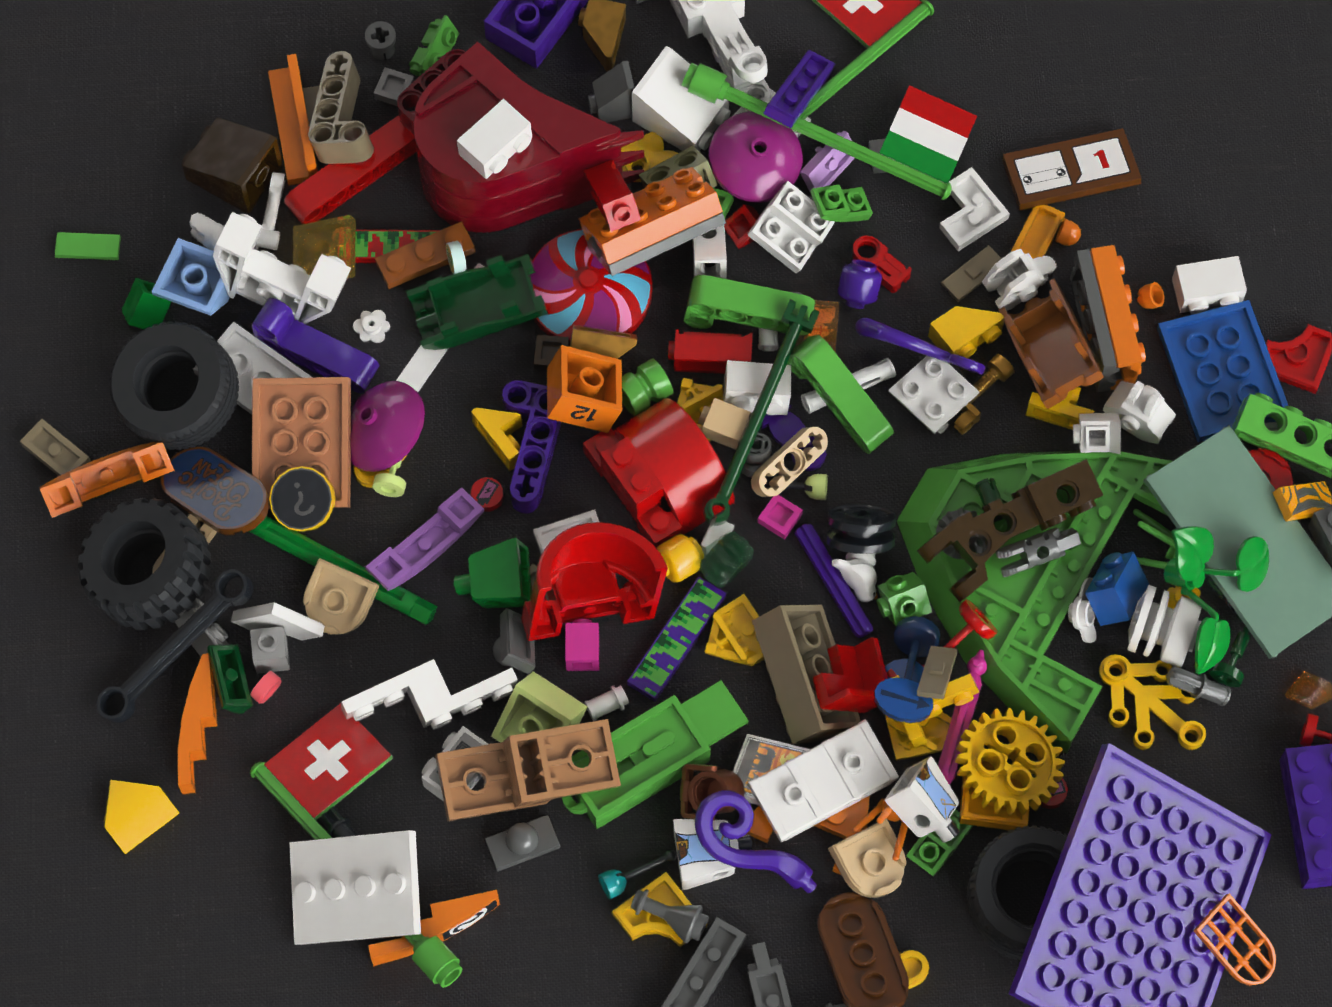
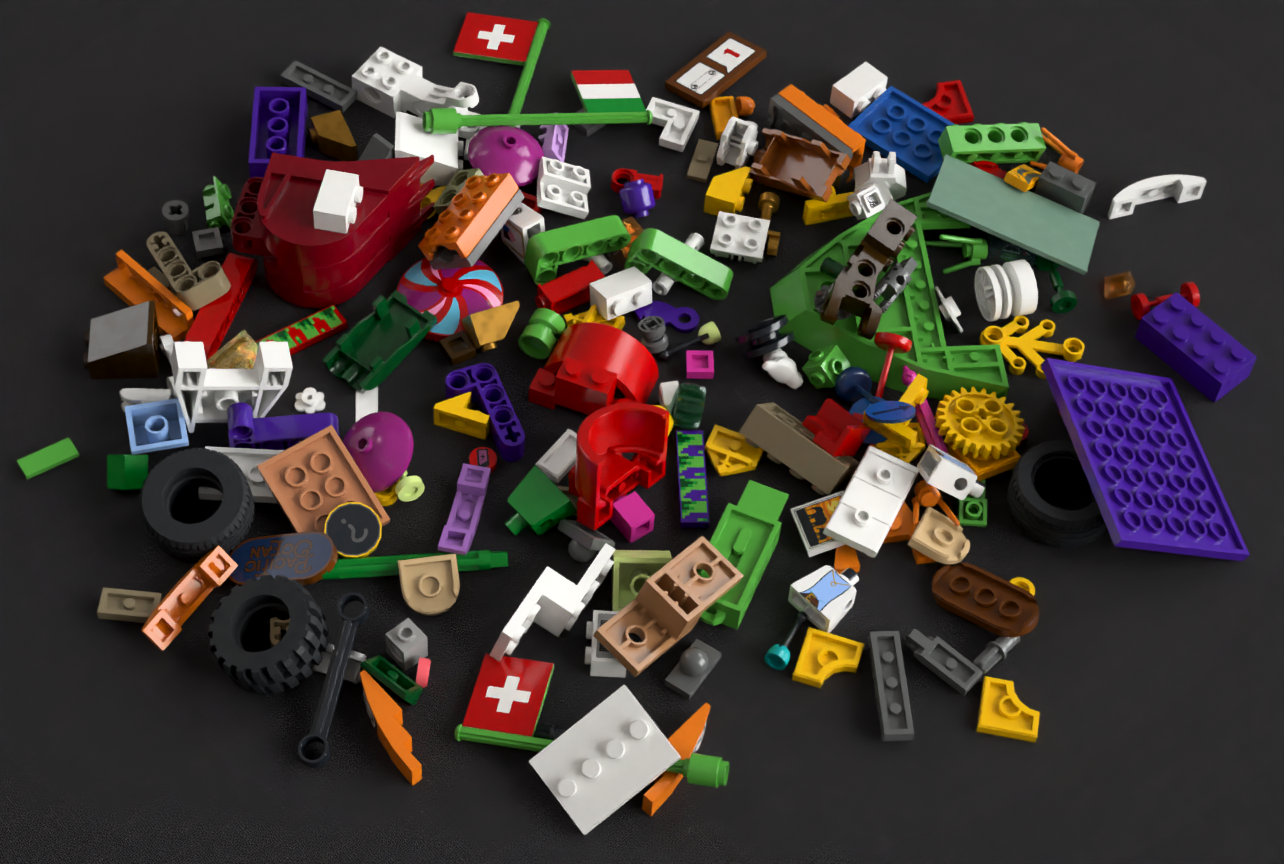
camera: 40 degrees left, 15 degrees down
(135, 812) = (388, 816): yellow slope -> none
(276, 615) = (395, 613): white tile -> none
(422, 255) = (318, 331): dark orange plate -> none
(456, 257) = (345, 316): light aqua tile -> none
(584, 389) = (507, 347): orange brick -> none
(607, 702) = (681, 539): white pin -> none
(612, 195) = (441, 211): red window -> none
(685, 920) = (852, 646): dark grey piece -> none
(696, 789) = (803, 550): copper piece -> none
(724, 423) = (621, 317): tan brick -> none
(775, 463) = (680, 346): tan beam -> none
(784, 864) = (887, 572): dark purple plant -> none
(796, 324) = (624, 233): dark green hinge -> none
(799, 88) = (504, 100): dark purple tile -> none
(833, 581) = (767, 384): dark purple axle -> none
(840, 204) = (586, 157): bright green slope -> none
(871, 328) = (706, 210): dark purple plant -> none
(937, 672) = (894, 387): dark tan piece -> none
(1116, 588) = (958, 283): blue brick -> none
(1187, 570) = (1001, 245): green plant -> none
(1198, 686) = (1054, 316): dark grey axle -> none
(1235, 927) = (1233, 454): orange window -> none

